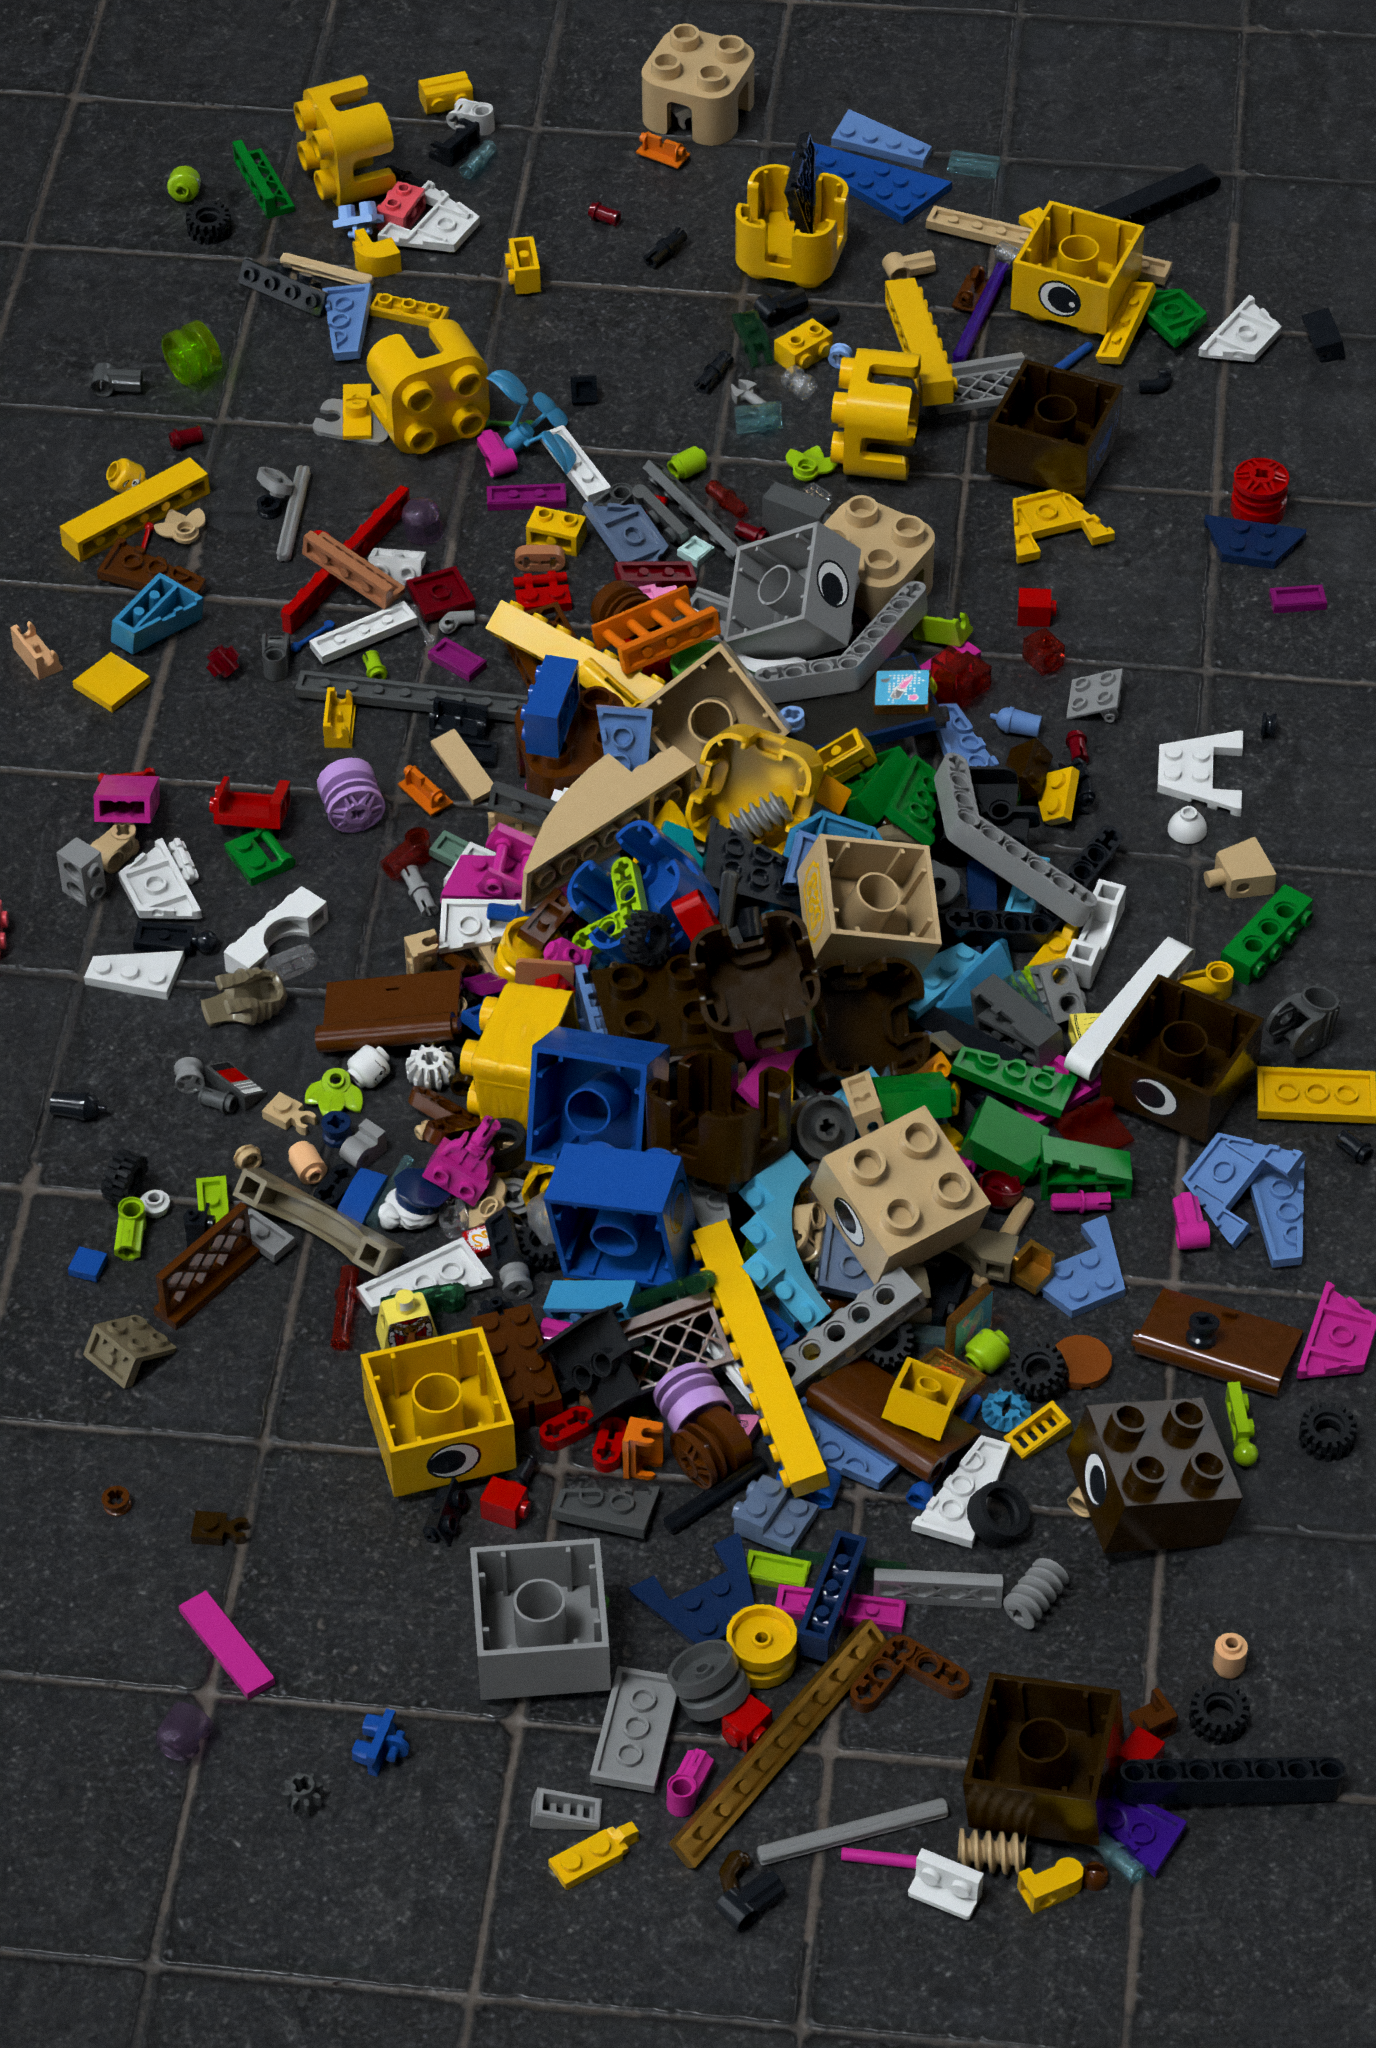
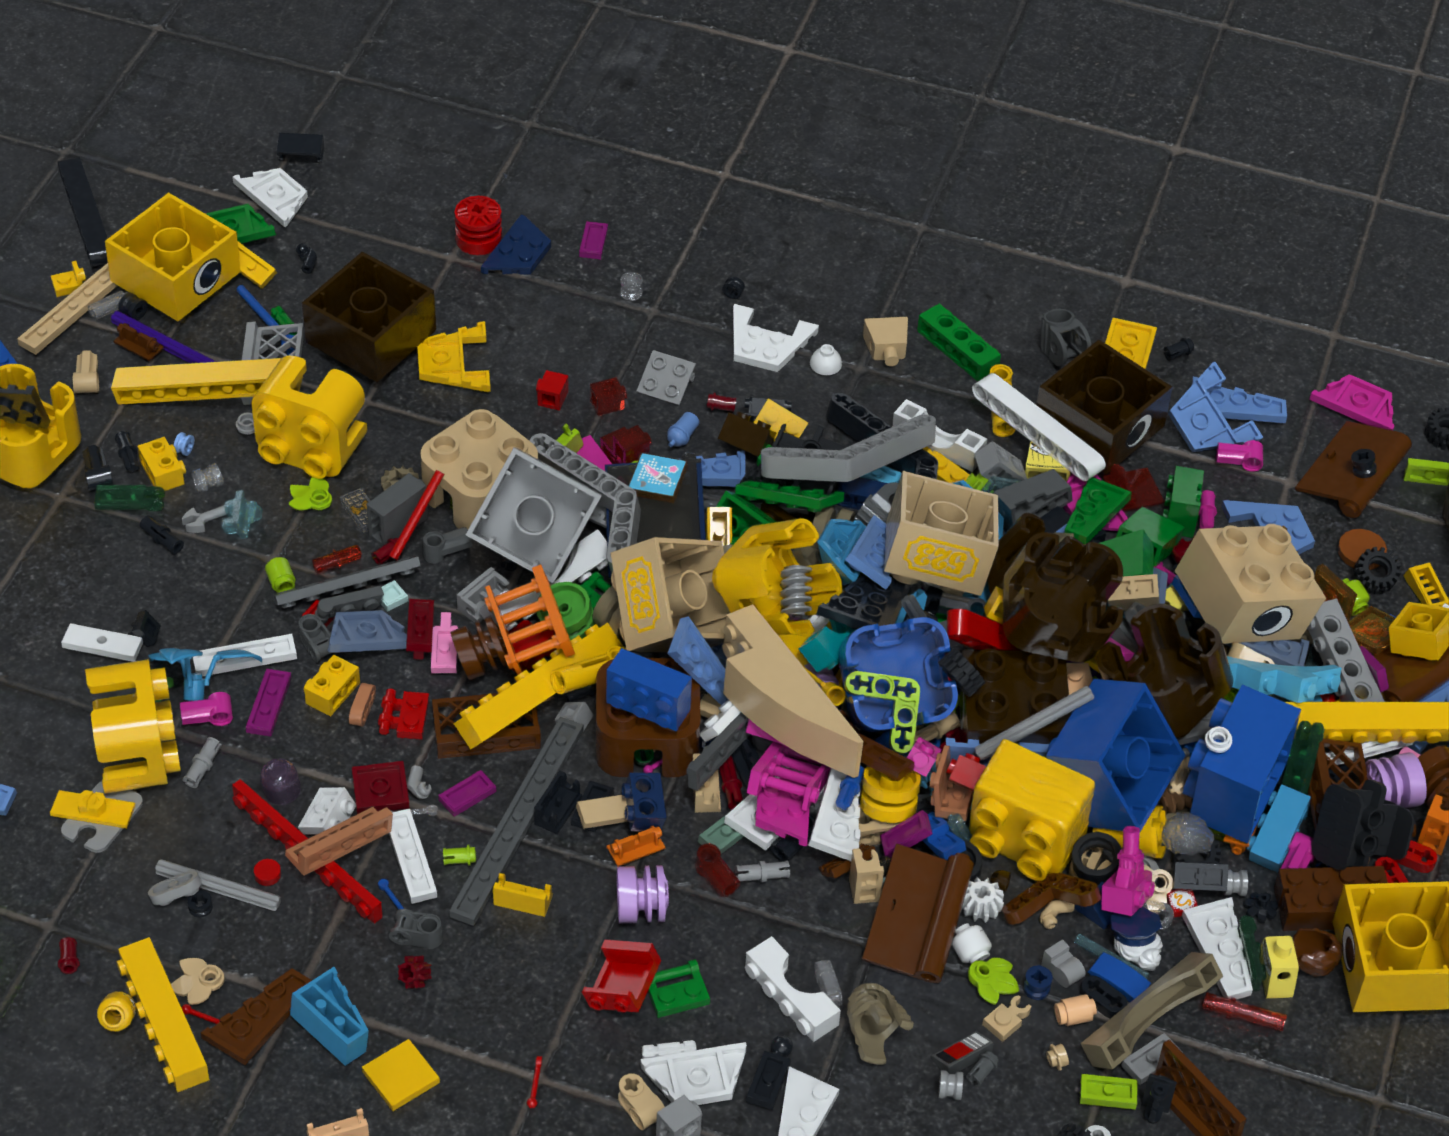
camera: 80 degrees left, 0 degrees up
(126, 799) = (590, 1075): dark pink brick -> none
(433, 467) = (202, 762): none -> light grey pin
(470, 782) = (649, 801): none -> dark blue brick
(557, 366) = (102, 642): none -> white tile
(595, 1144) = (1218, 733): none -> white plate
(608, 1016) = (1036, 721): none -> light grey axle
(783, 526) = (416, 515): none -> red bar
(853, 1359) = (1377, 669): none -> magenta tile
(993, 1413) = (1393, 599): dark azure gear -> none
(1231, 640) = (631, 286): none -> clear wheel

